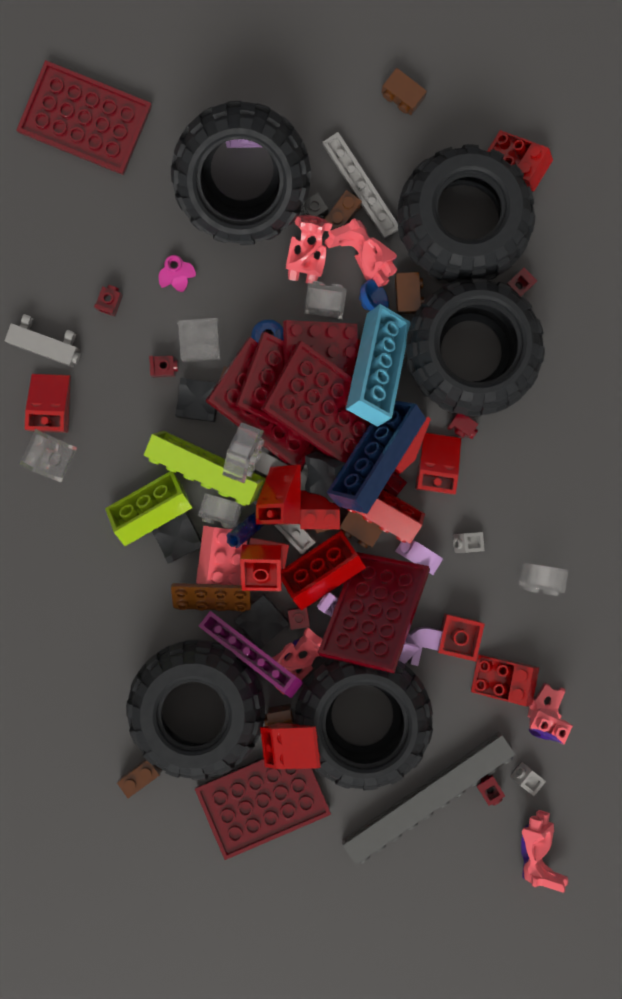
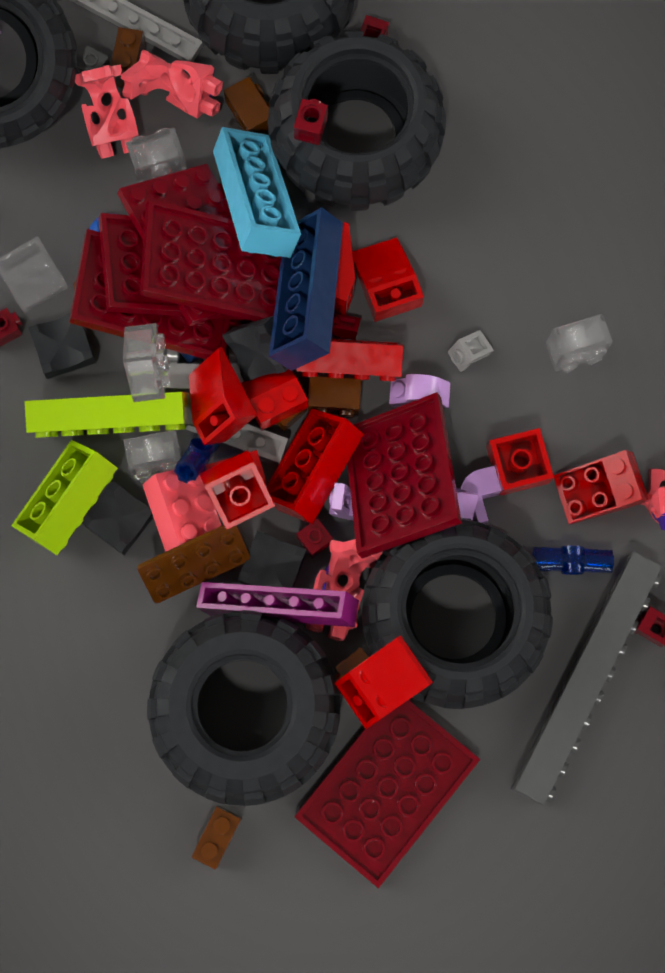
camera: 20 degrees left, 10 degrees down
(372, 295) = (206, 129): blue piece -> none
(430, 347) = (309, 131): none -> dark red brick
(460, 718) = (574, 560): none -> clear blue piece
(463, 426) = (392, 221): dark red brick -> none

